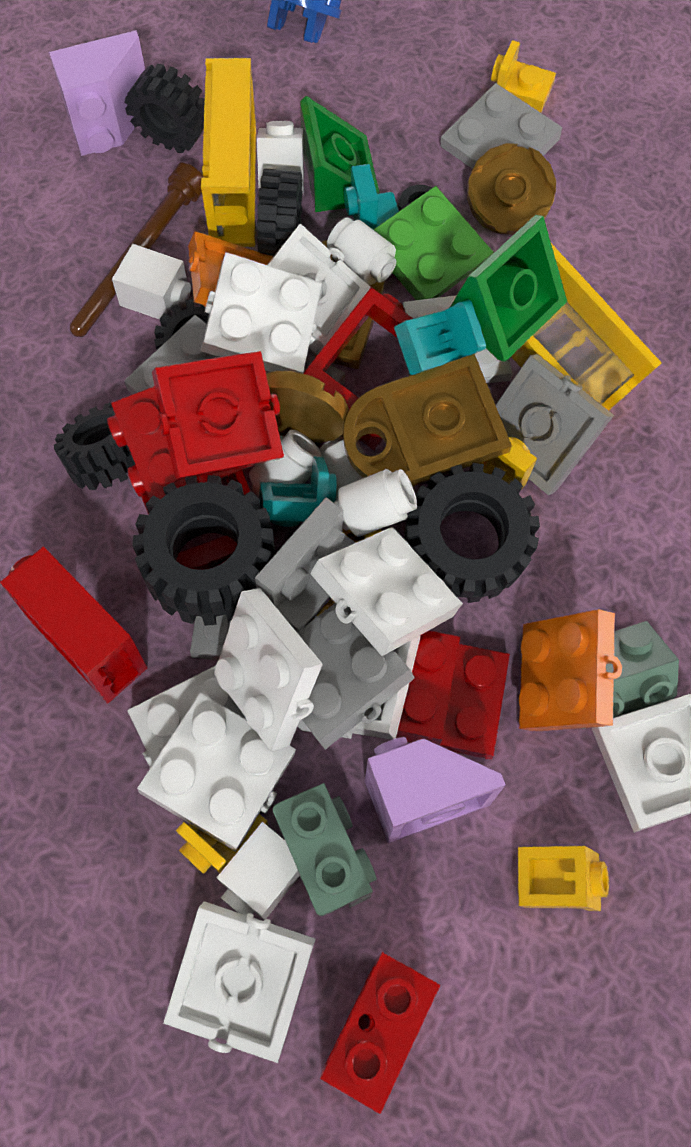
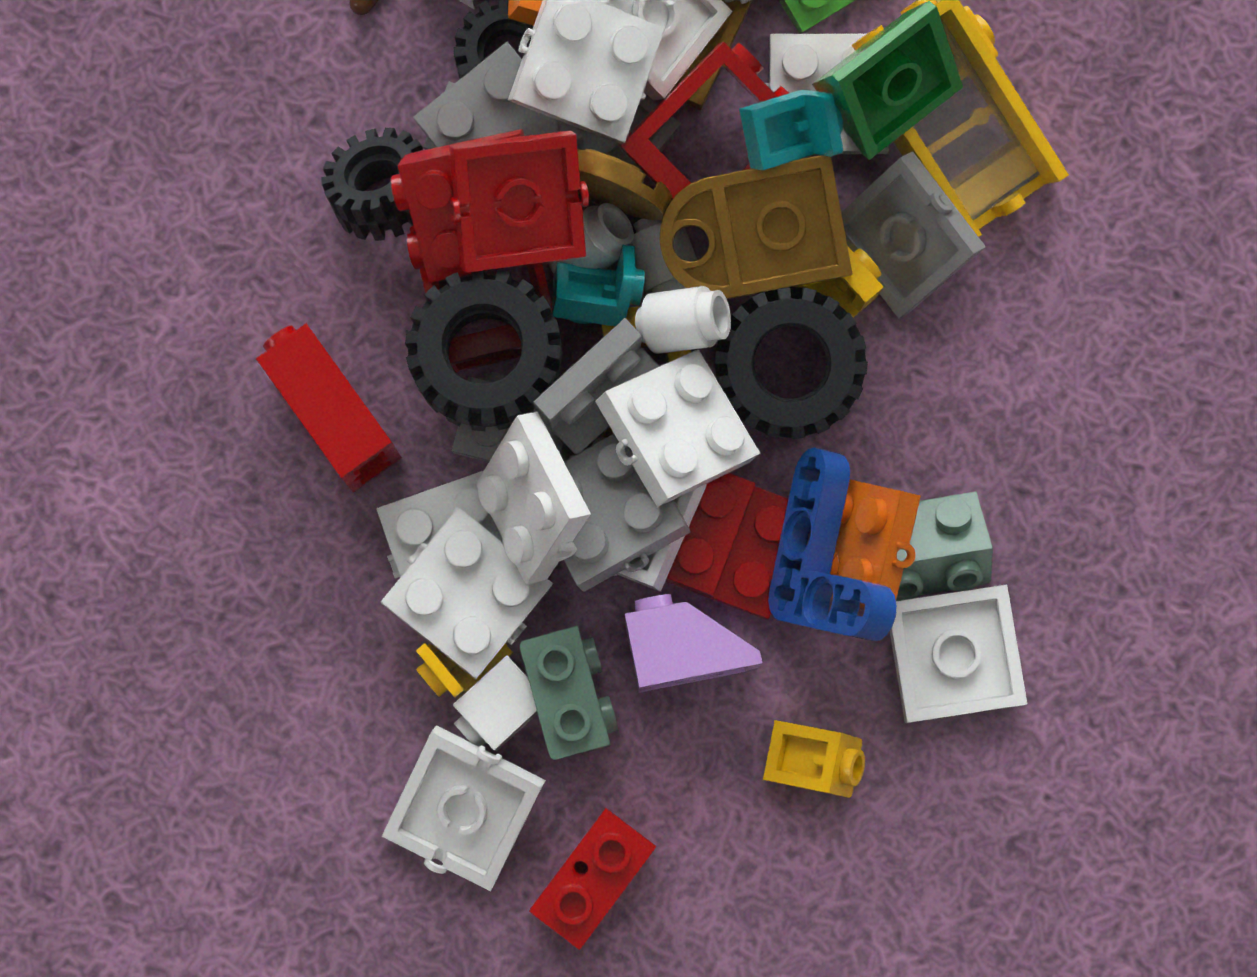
camera: 10 degrees right, 15 degrees up
(526, 724) = (801, 572): none -> blue beam

